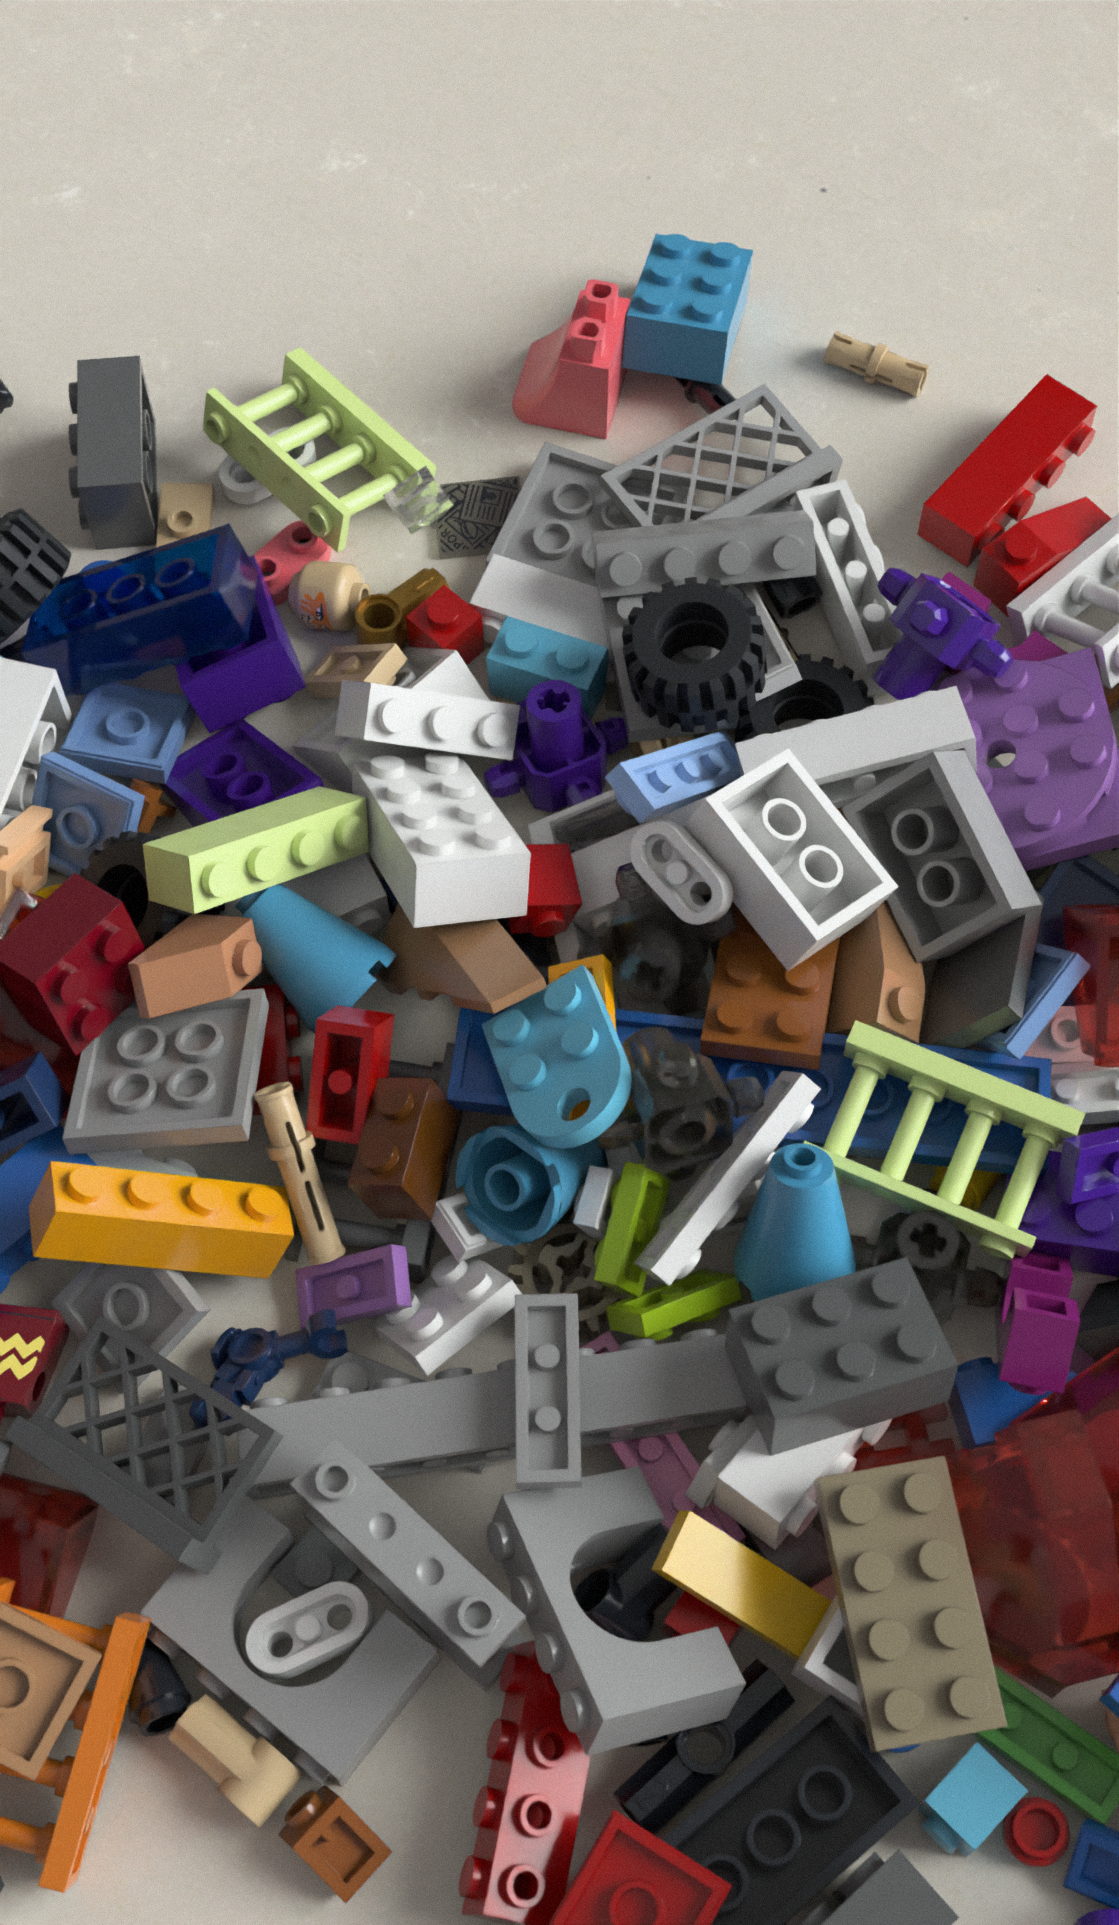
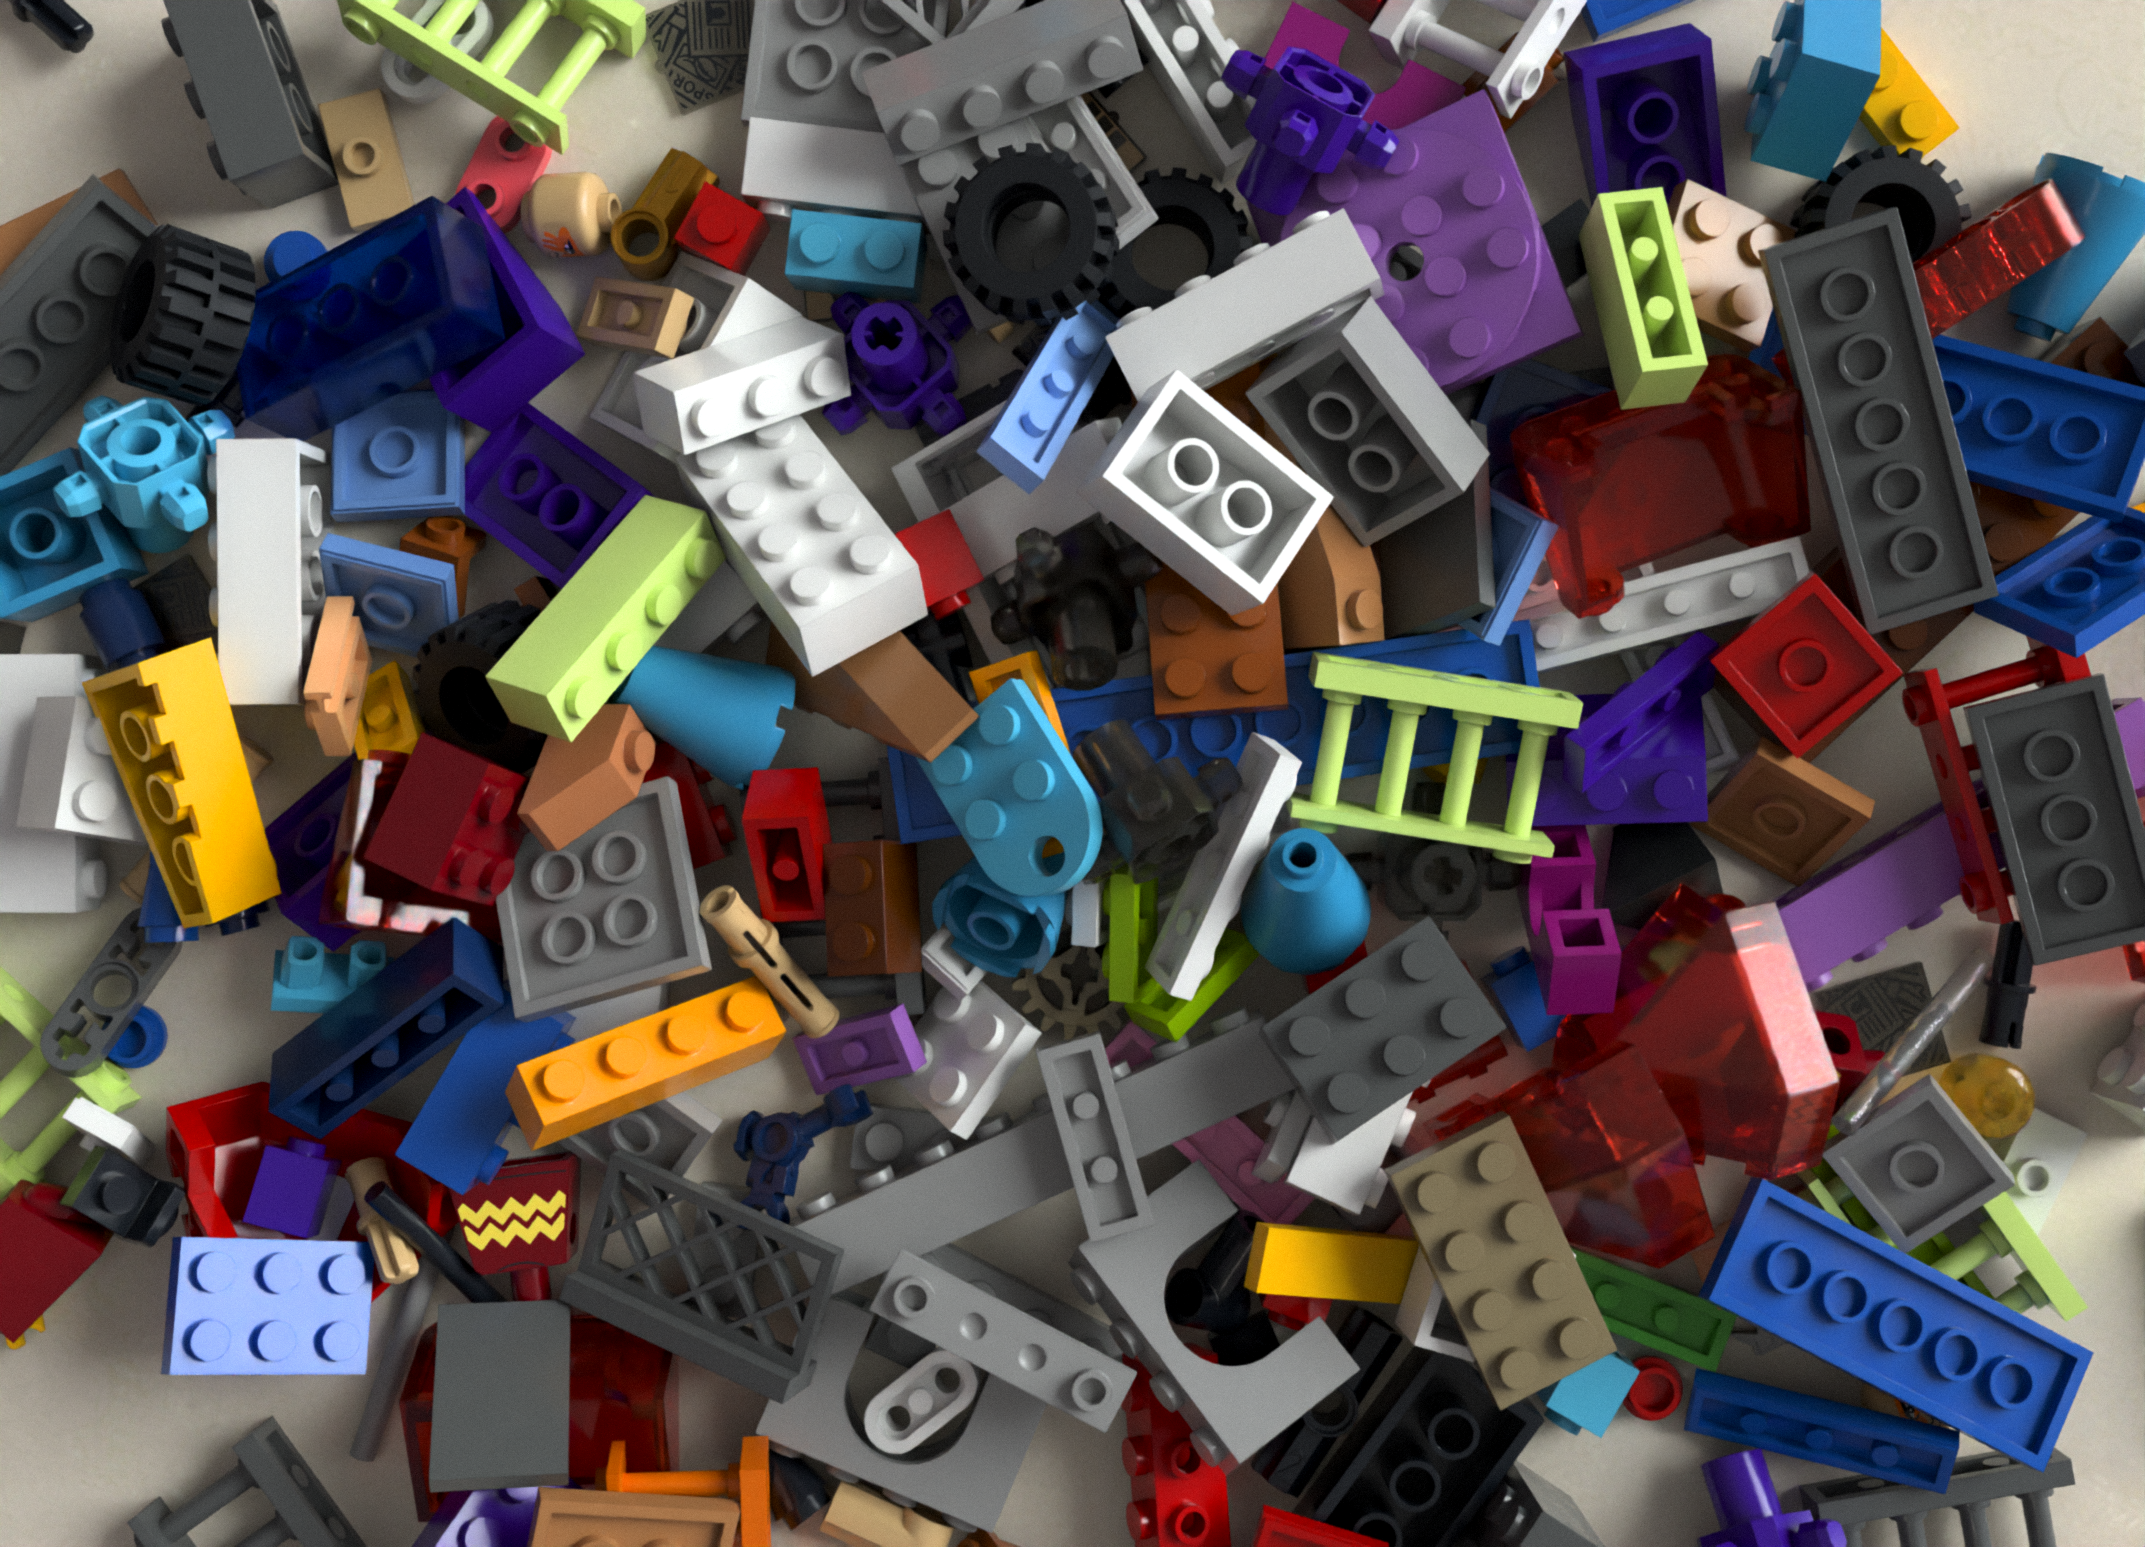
camera: 15 degrees left, 25 degrees up
(418, 500) = (637, 55): clear plate -> none
(682, 876) = (1090, 544): white plate -> none

